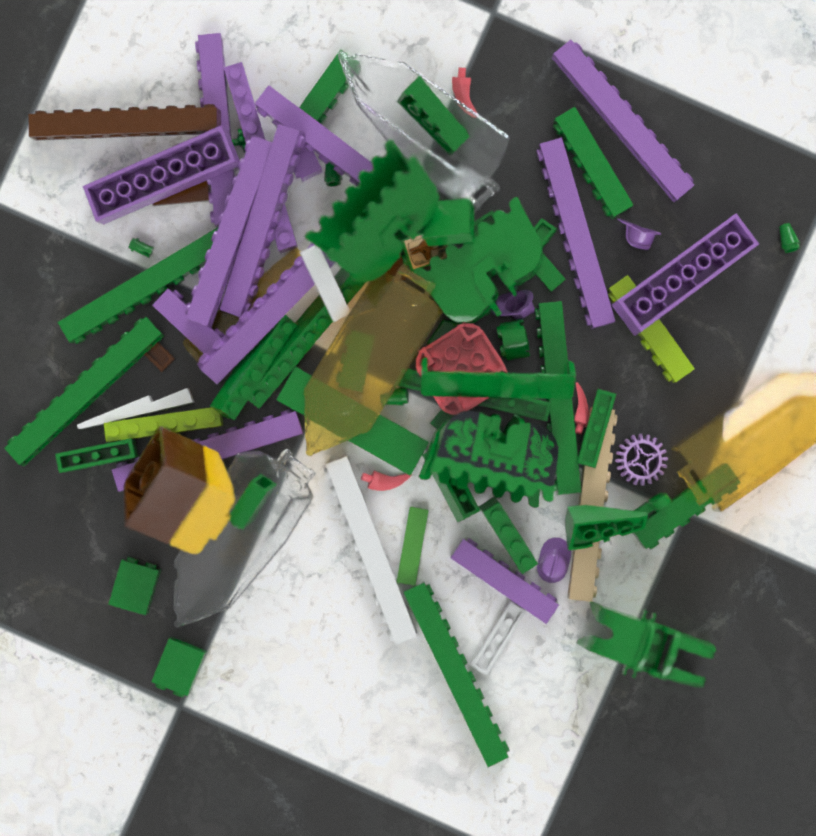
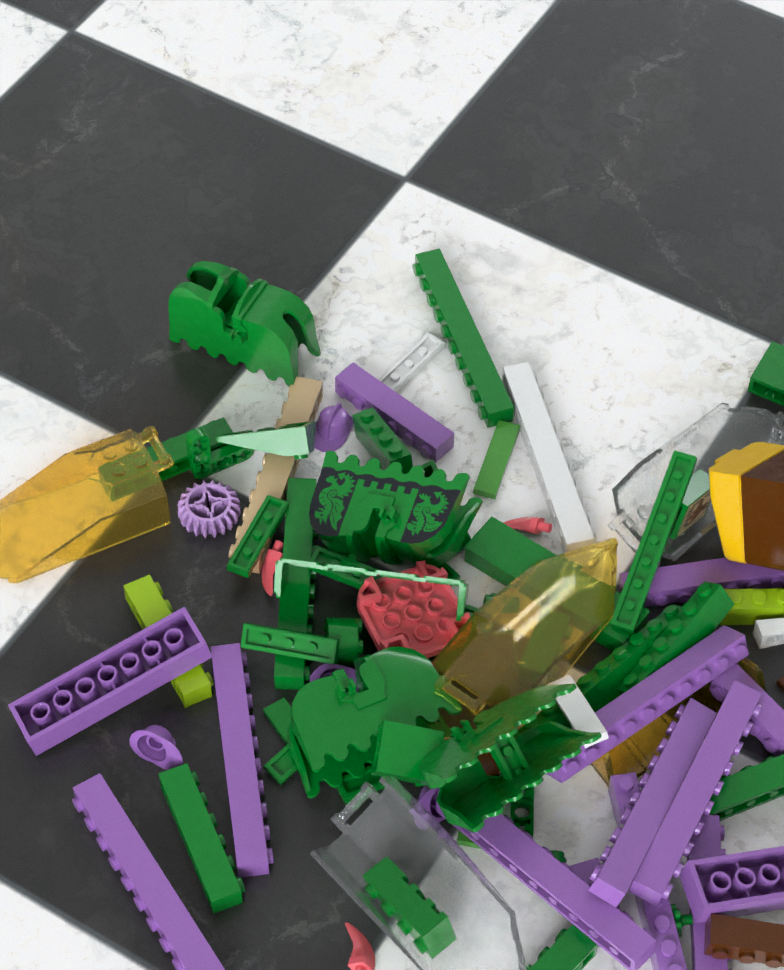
camera: 170 degrees left, 35 degrees down
(275, 447) = (653, 542): none -> green plate
(553, 324) = (290, 643): none -> green tile

